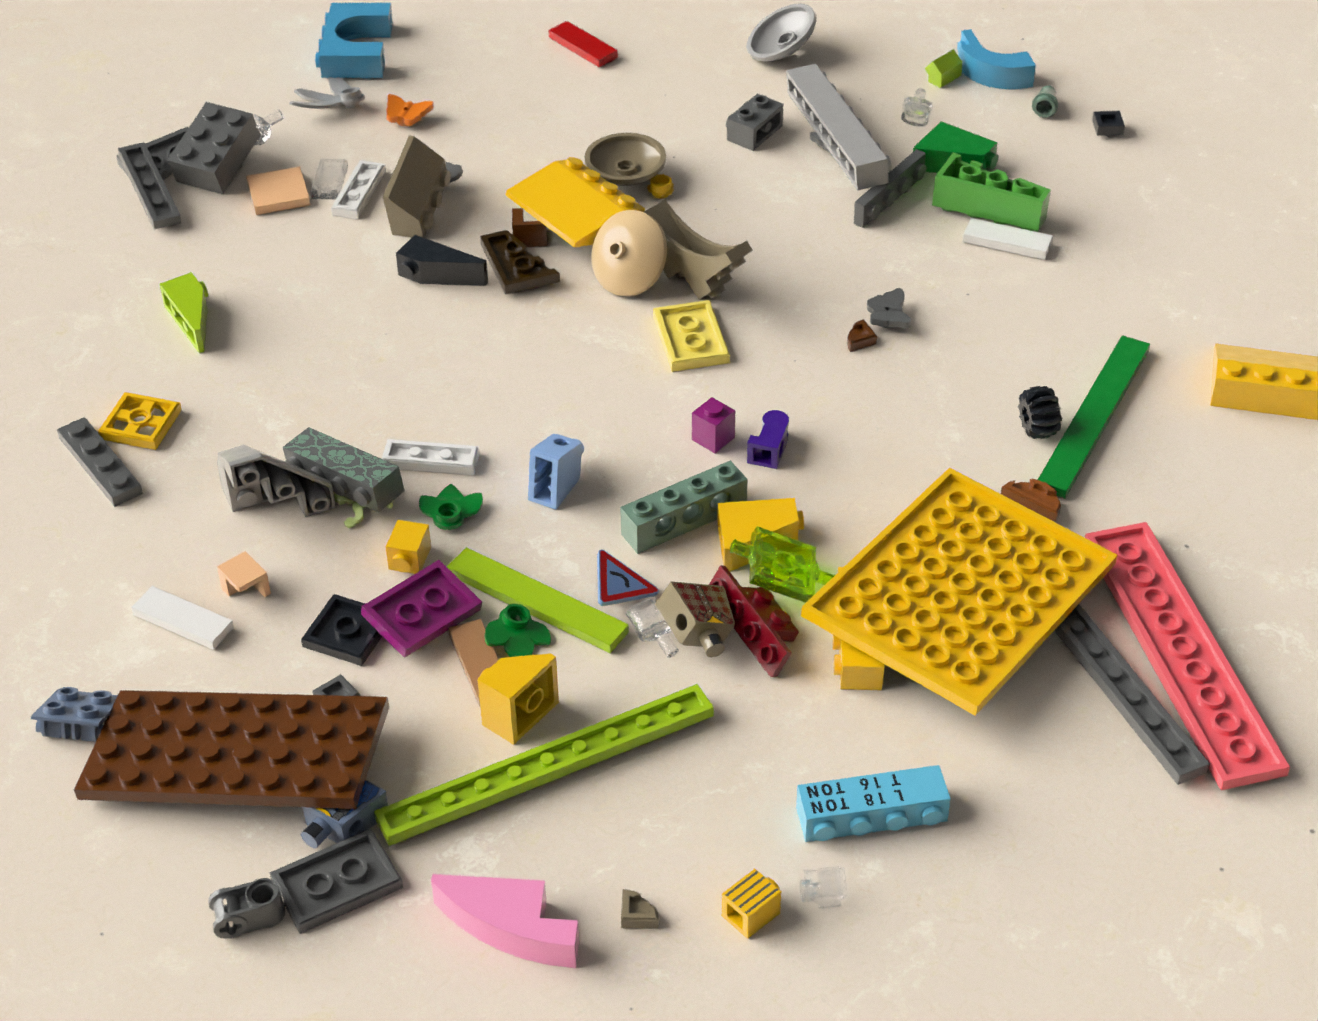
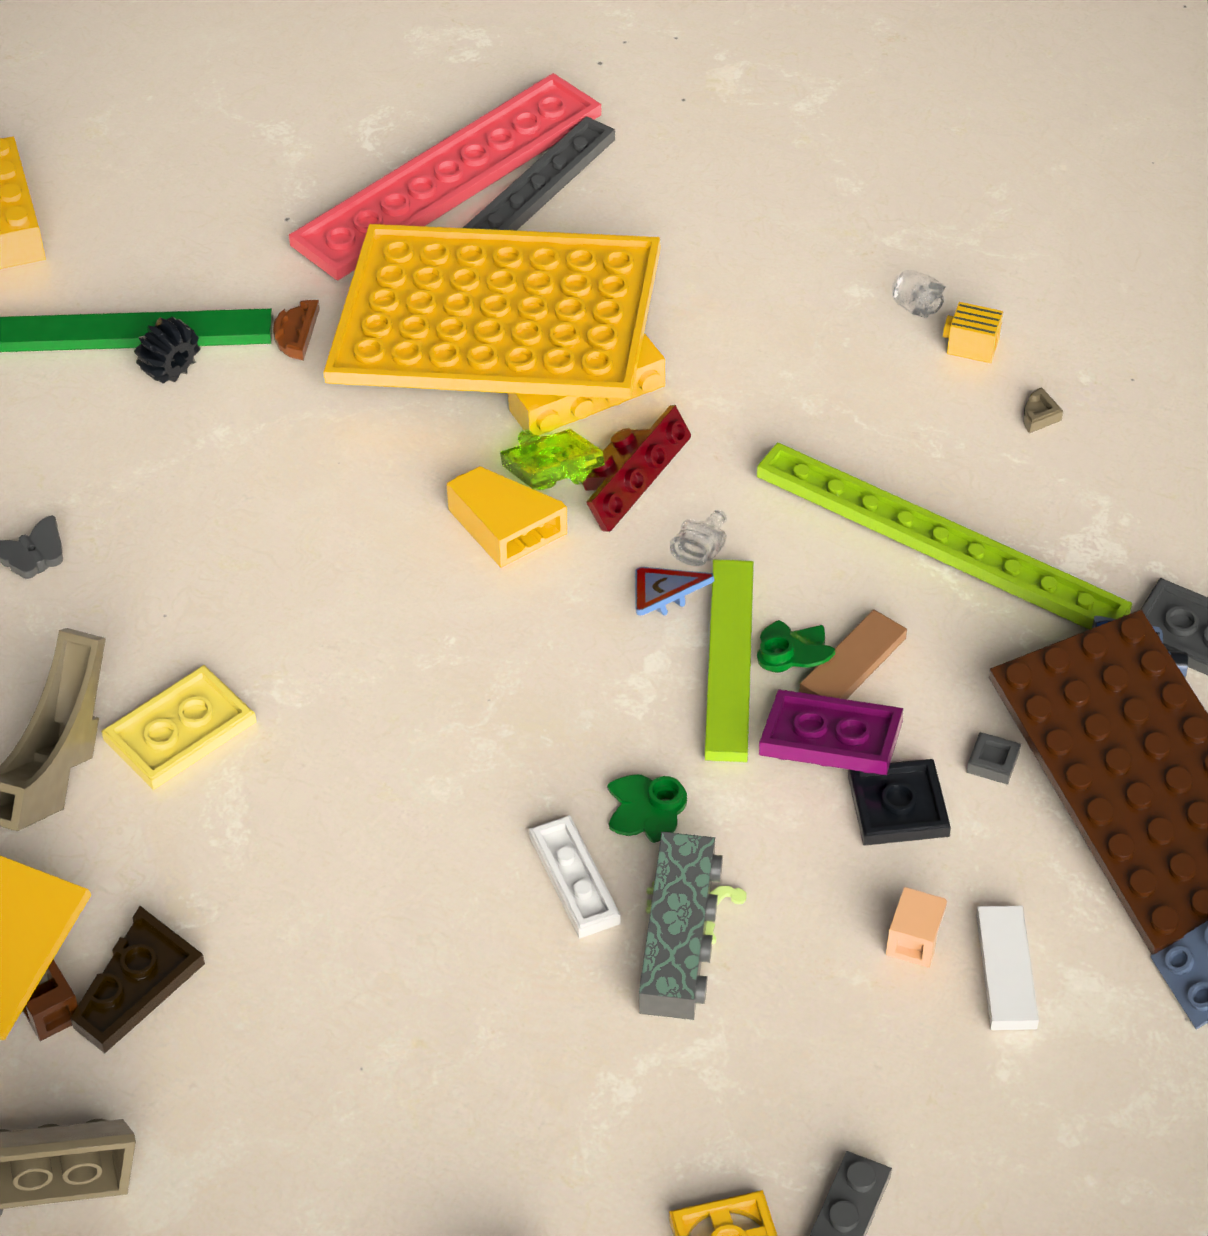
camera: 120 degrees left, 5 degrees up
(257, 477) = (763, 972): light grey brick -> none
(408, 546) = (749, 799): yellow brick -> none
(439, 264) = (193, 1077): black slope -> none
(508, 917) = (1129, 477): bright pink slope -> none
(517, 694) = (892, 573): yellow slope -> none
(554, 469) = (530, 715): light blue torso -> none
(640, 253) = (78, 820): tan dish -> none
(681, 506) = (511, 582): sand green brick -> none
(697, 615) = (670, 494): dark tan torso -> none
(713, 425) = (355, 615): magenta brick -> none
(769, 446) = (340, 562): dark purple leg -> none
(861, 336) = (88, 568): reddish brown tile -> none
(872, 803) = (800, 299): medium azure brick -> none

